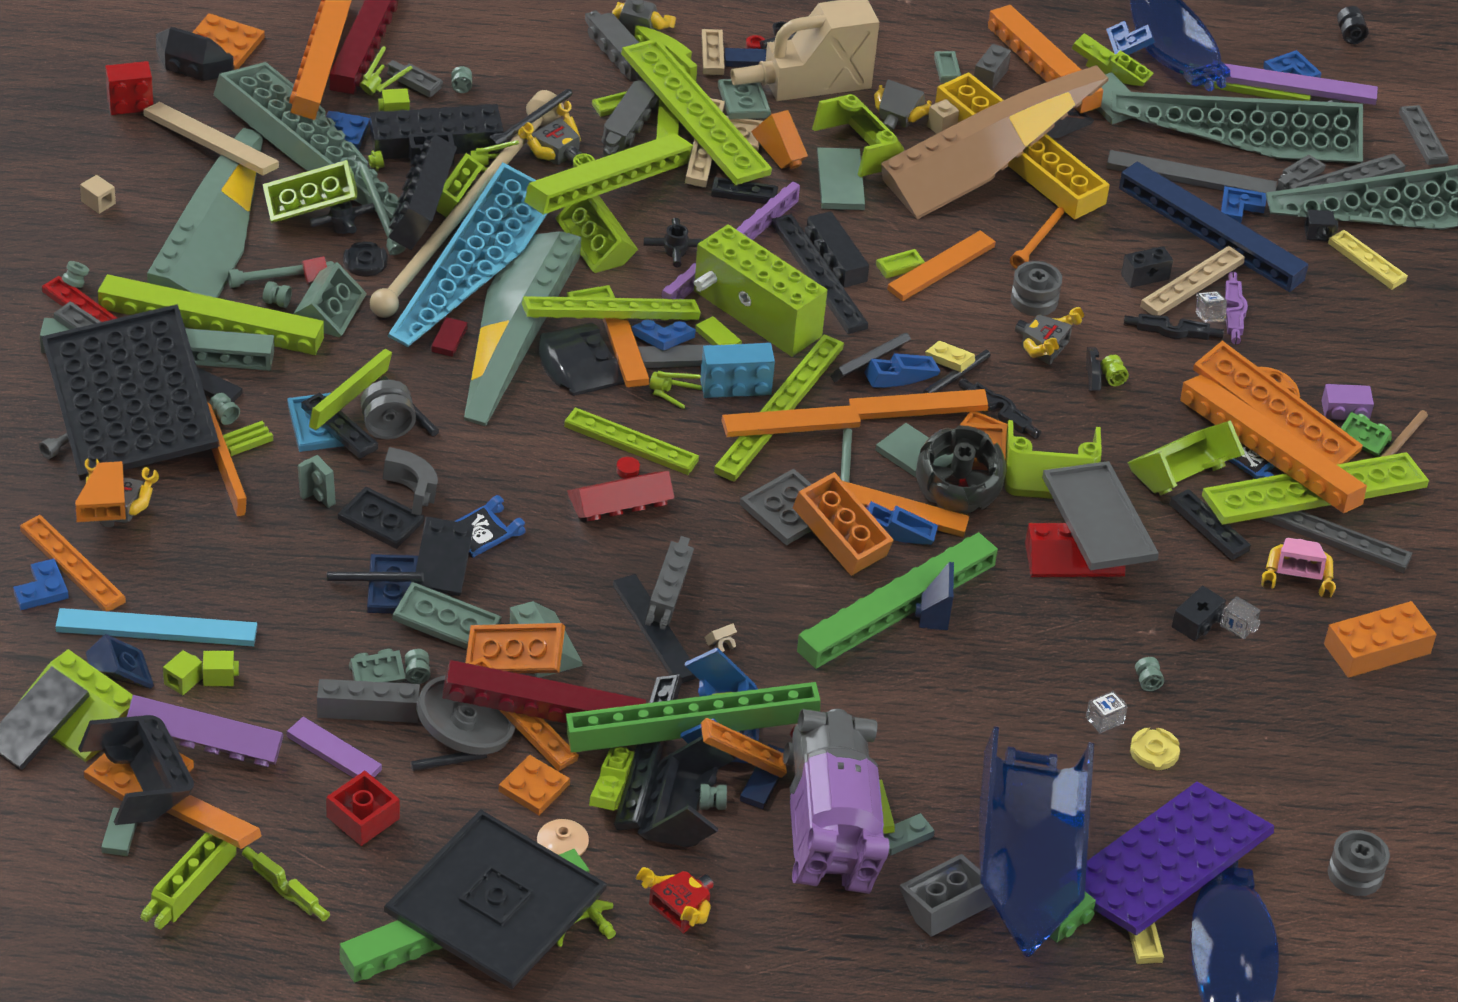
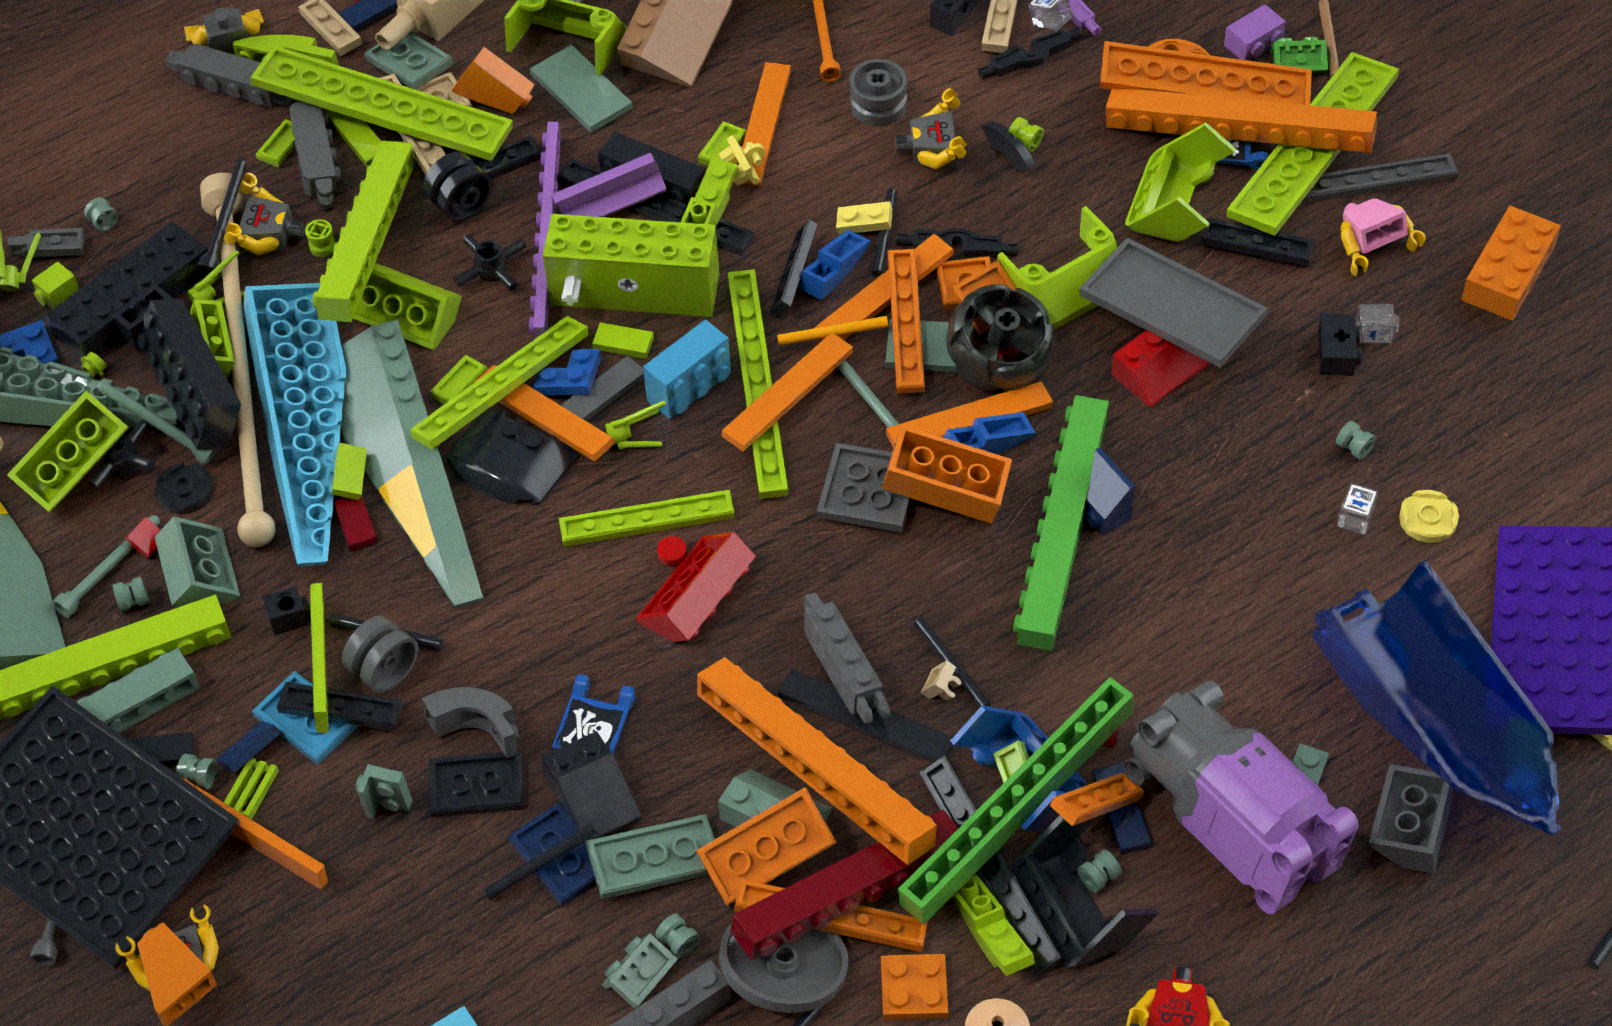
camera: 30 degrees left, 10 degrees up
(266, 414) = (248, 746): none -> dark blue tile
(356, 355) = (276, 607): none -> black brick
(469, 304) = (349, 471): none -> lime tile
(592, 623) = (817, 761): none -> orange brick
(696, 185) = (457, 186): none -> black wheel
(741, 632) = (944, 654): none -> black bar
(796, 243) = (612, 189): none -> medium lavender panel
(854, 286) = (712, 194): none -> lime slope
(862, 407) = (839, 329): none -> light orange bar
(899, 275) = (746, 157): none -> light yellow hips
(912, 427) = (906, 321): none -> orange tile

